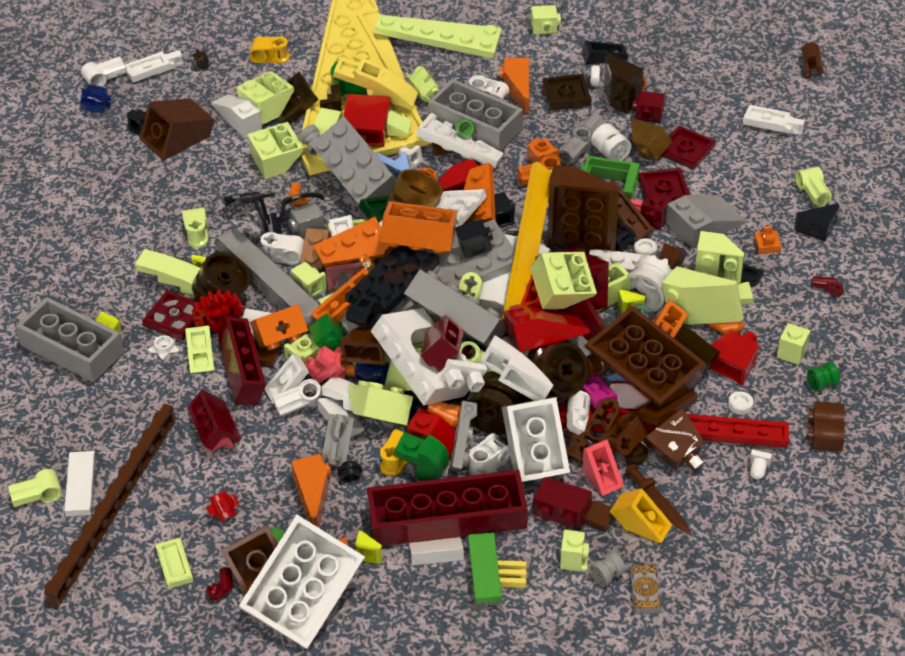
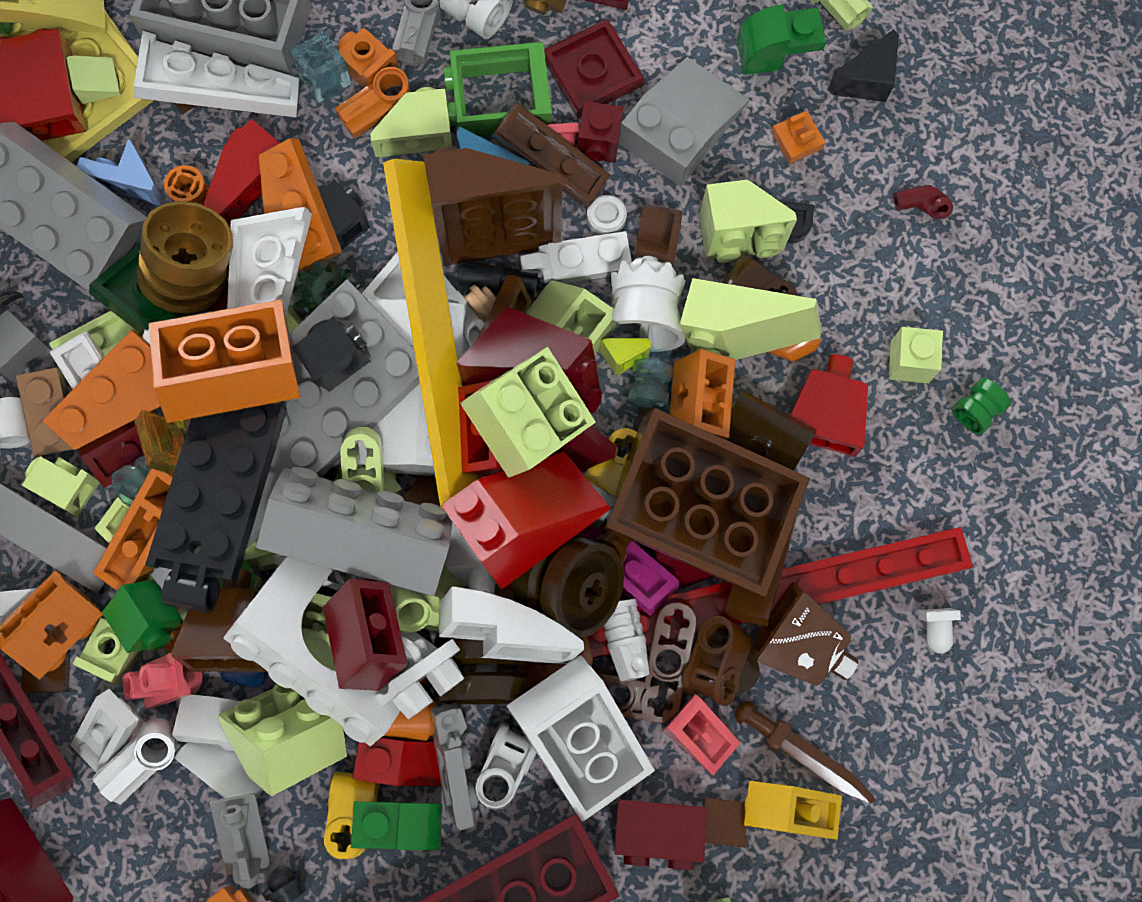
camera: 25 degrees left, 30 degrees up
(413, 155) = (143, 133): white piece -> none
(467, 131) = (221, 56): bright green hinge -> none
(517, 148) = (320, 66): none -> clear light blue brick
(630, 240) = (572, 206): black bush -> none
(740, 403) = (866, 500): white tile -> none
(745, 293) = (795, 264): yellowish green tile -> none
(768, 190) = (775, 33): none -> green brick
(827, 426) = (1020, 510): reddish brown brick -> none

